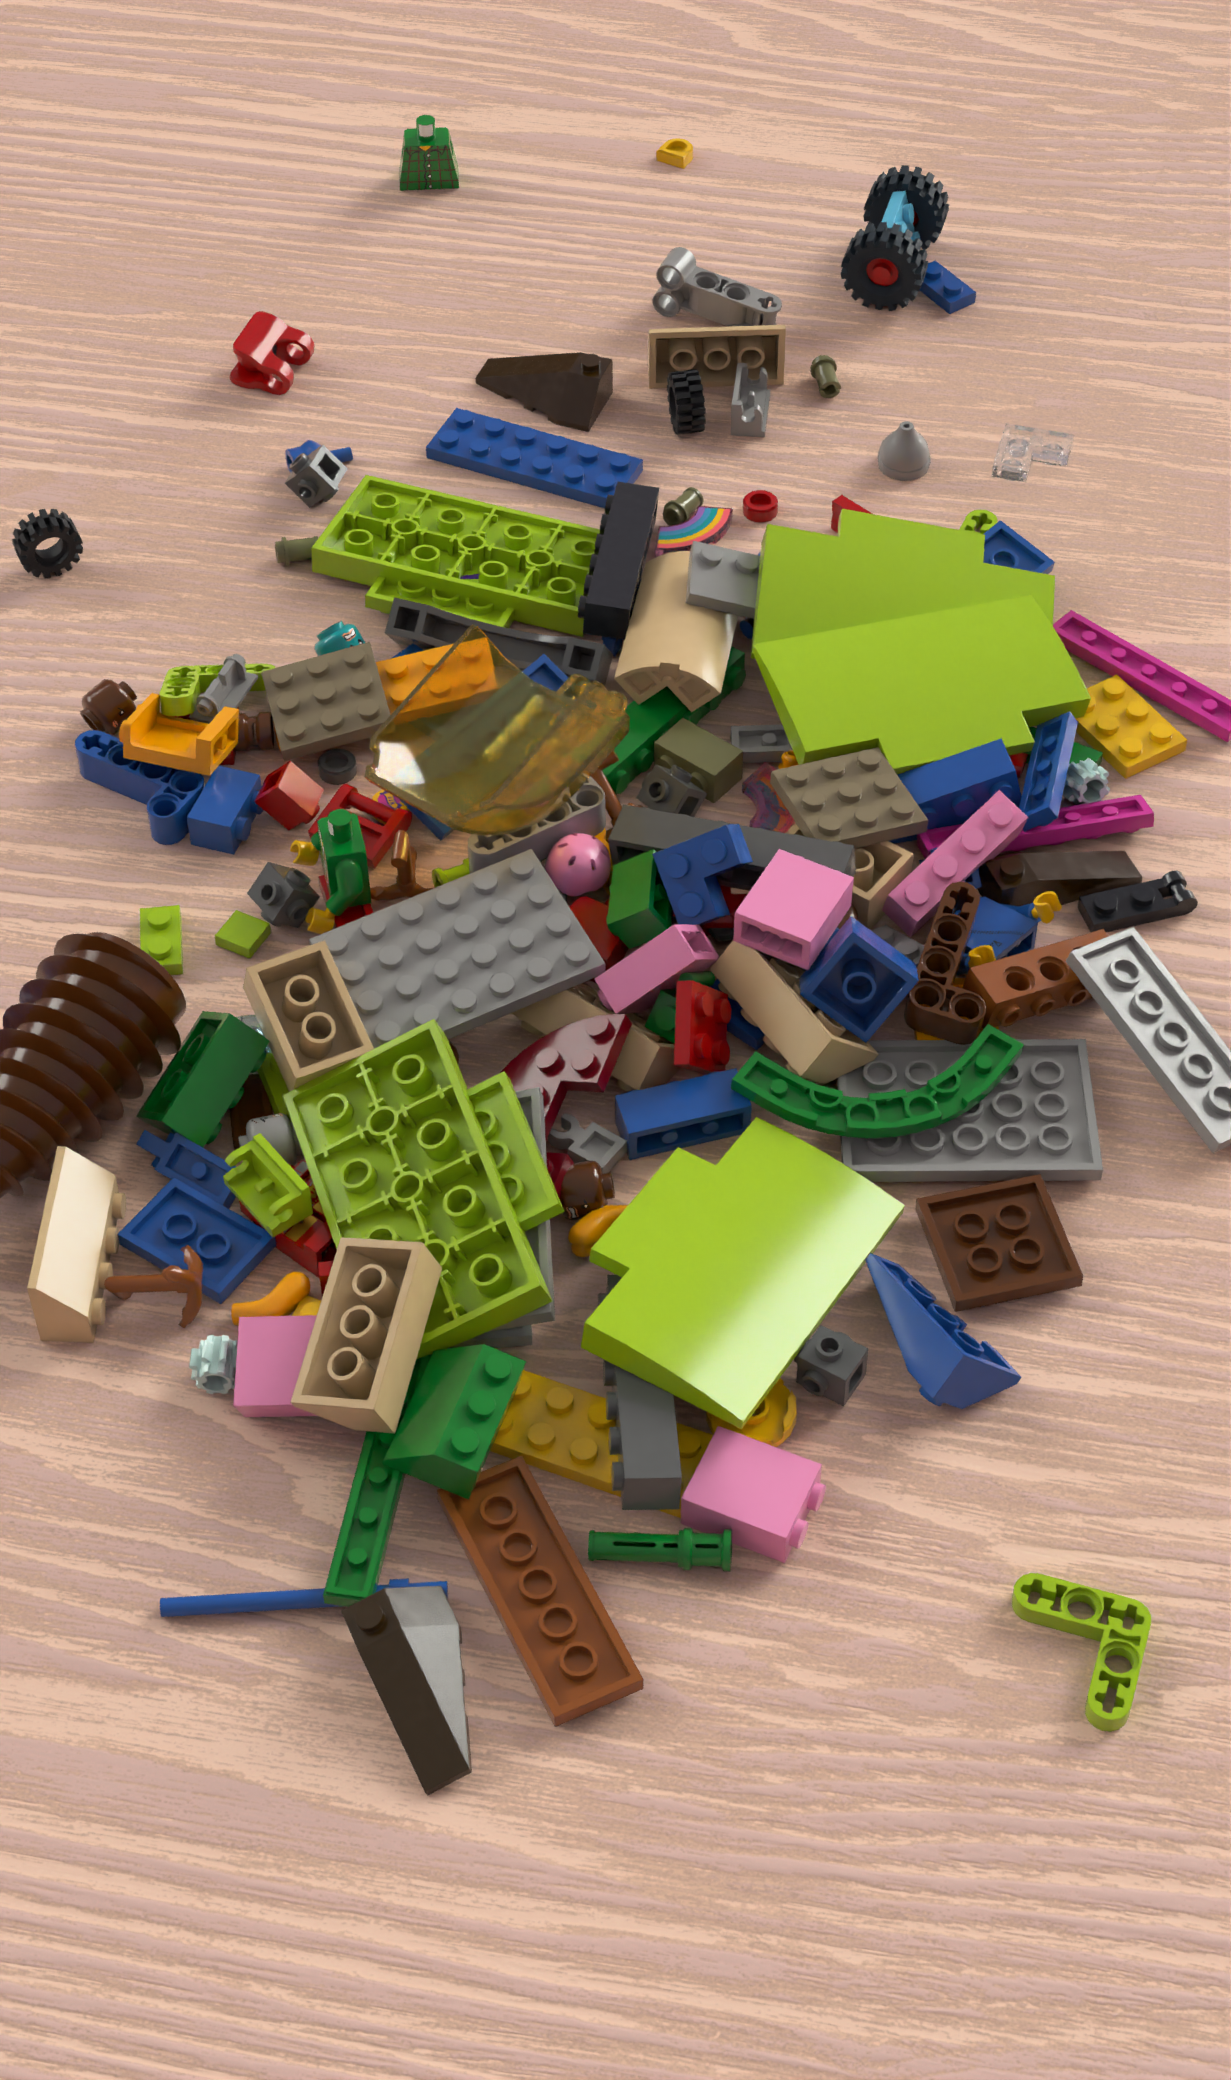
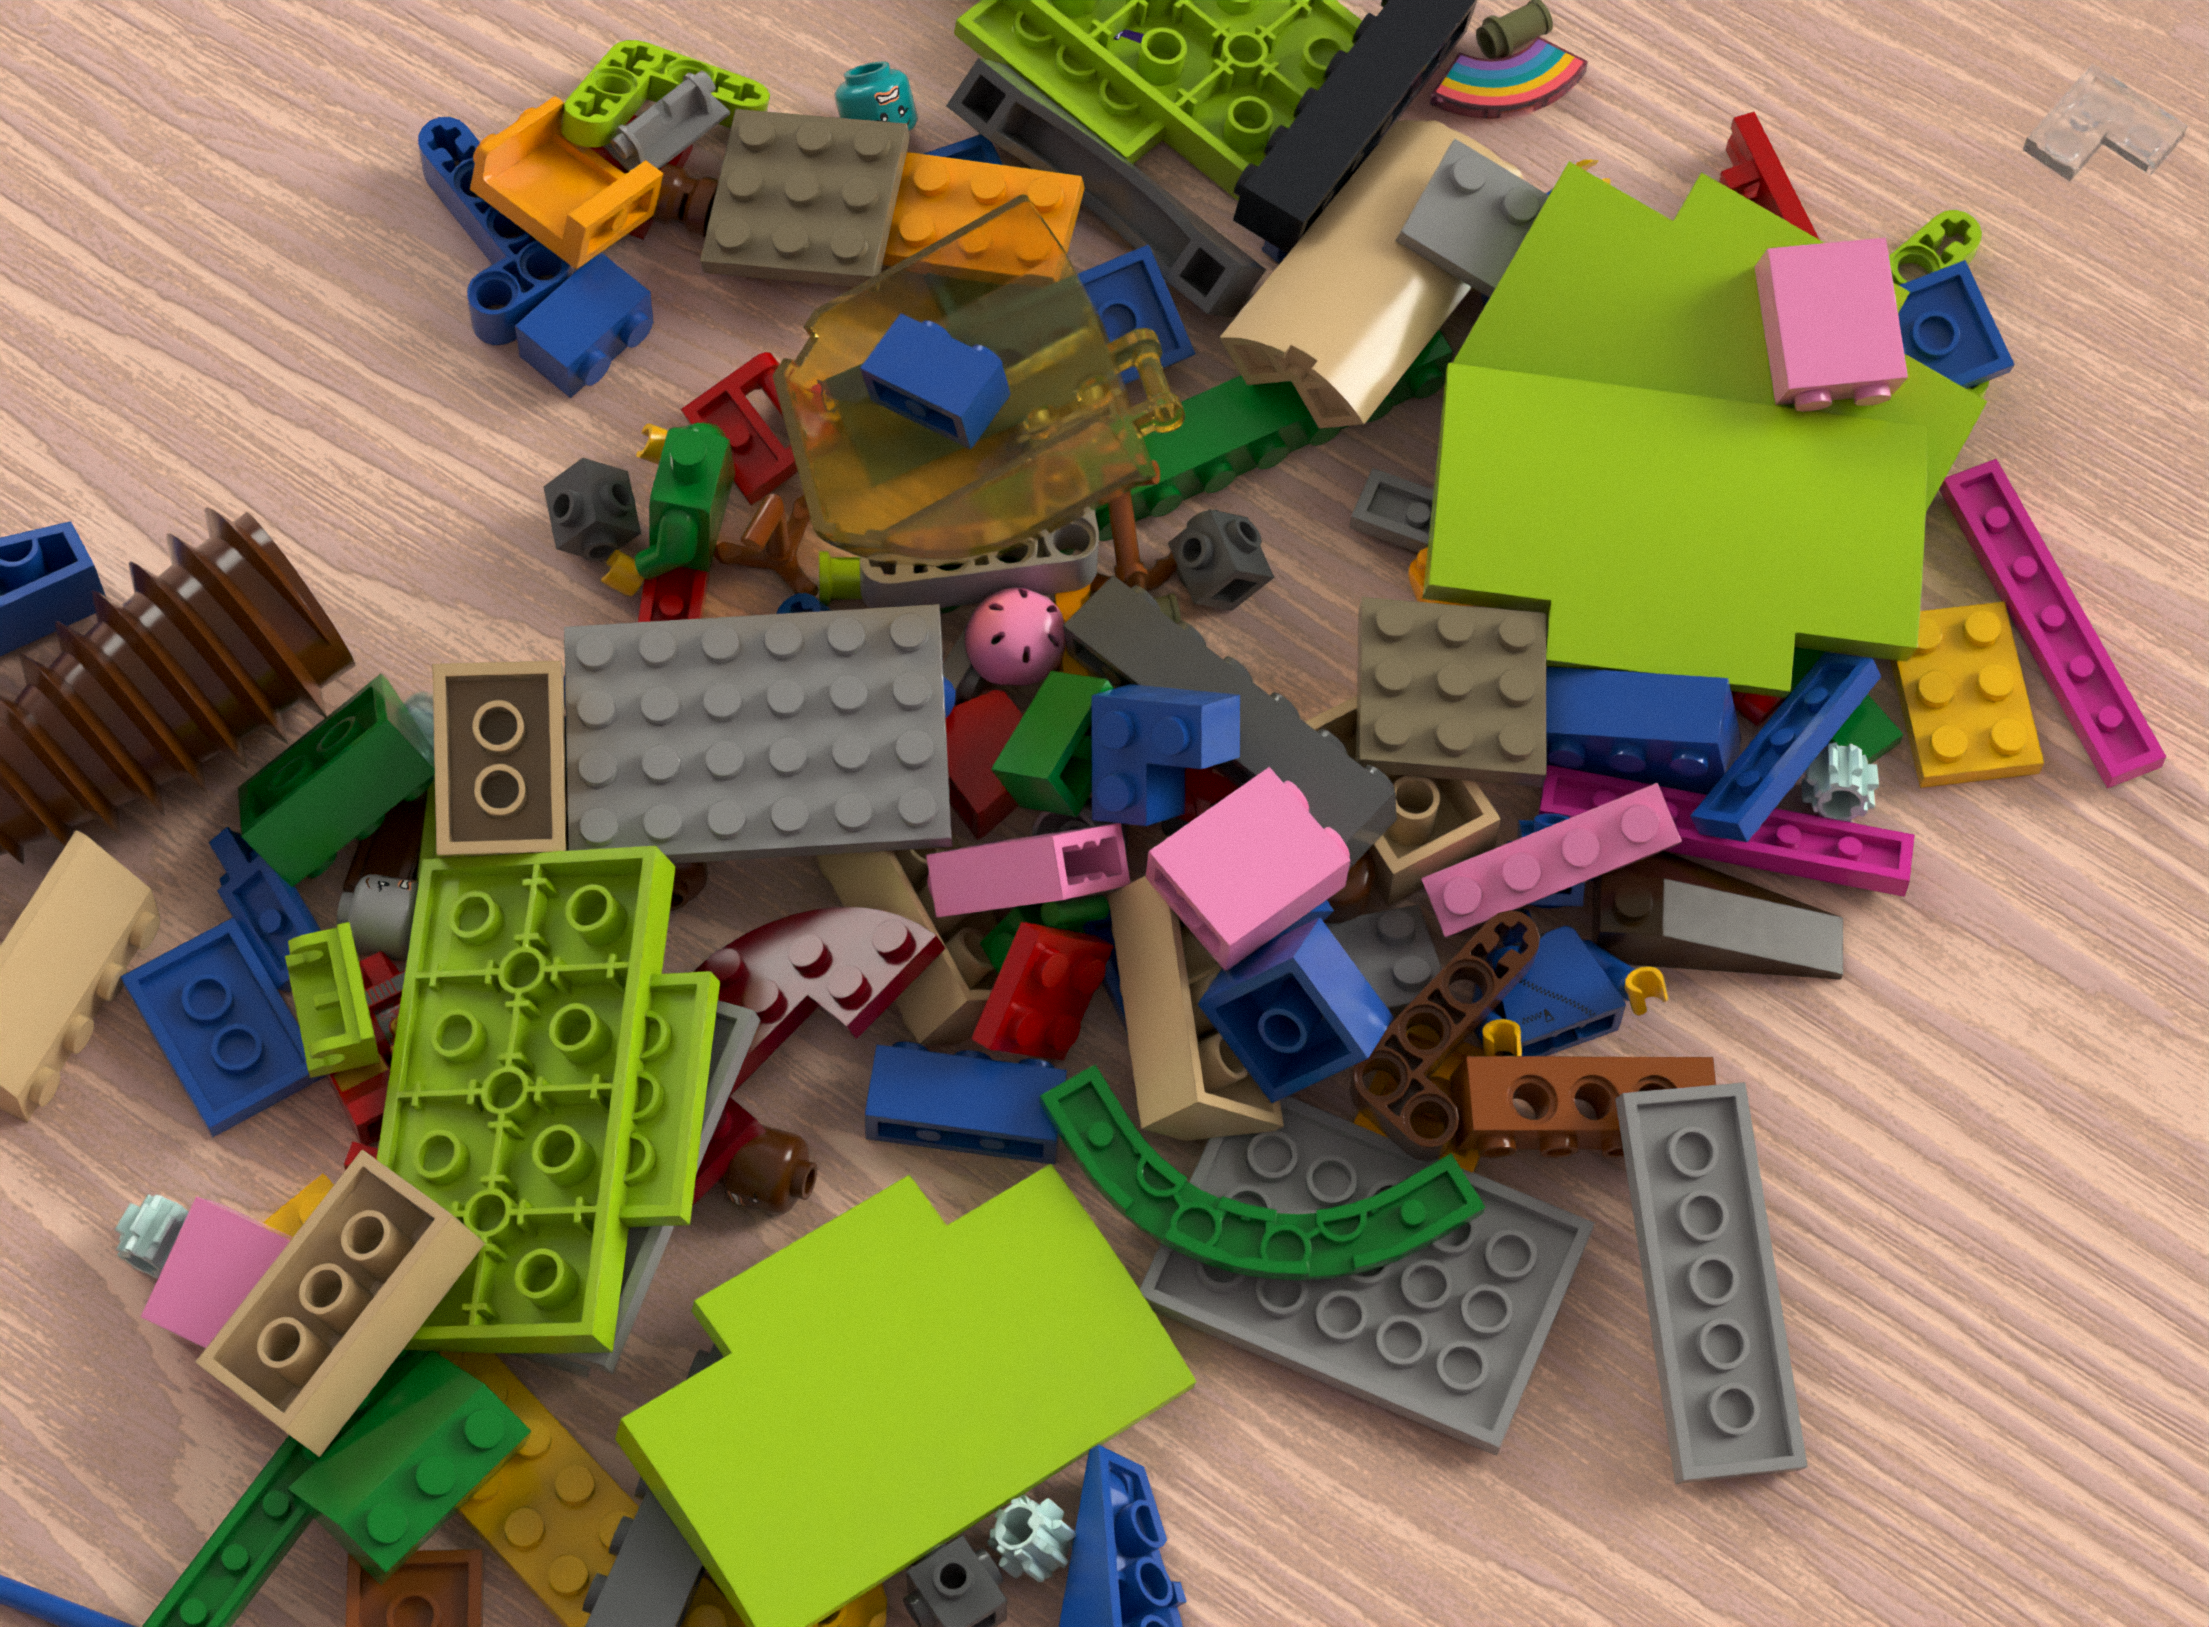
camera: 20 degrees right, 15 degrees up
(108, 706) = (504, 76): reddish brown head -> none
(163, 936) = (400, 510): lime plate -> none
(170, 1279) = (144, 1089): dark orange piece -> none
(243, 934) = (515, 545): lime tile -> none
(278, 1302) = (281, 1173): light orange arm -> none
(290, 796) = (680, 341): red brick -> none
(337, 766) = (781, 306): dark grey tile -> none
(464, 744) = (936, 380): none -> blue brick
(588, 1144) = (816, 1104): light grey plate -> none
(591, 1228) = (756, 1234): light orange arm -> none
(709, 759) = (1294, 509): olive brick -> none
(760, 506) = (1636, 69): red tile -> none
(771, 811) = (1375, 578): clear pink tile -> none
(859, 1317) = (1031, 1538): none -> light aqua gear
(904, 454) = (1905, 61): light grey helmet -> none
(954, 555) = (1831, 323): none -> bright pink brick
(998, 1242) = (1293, 1496): reddish brown plate -> none
(1137, 903) = (1807, 1018): black plate -> none

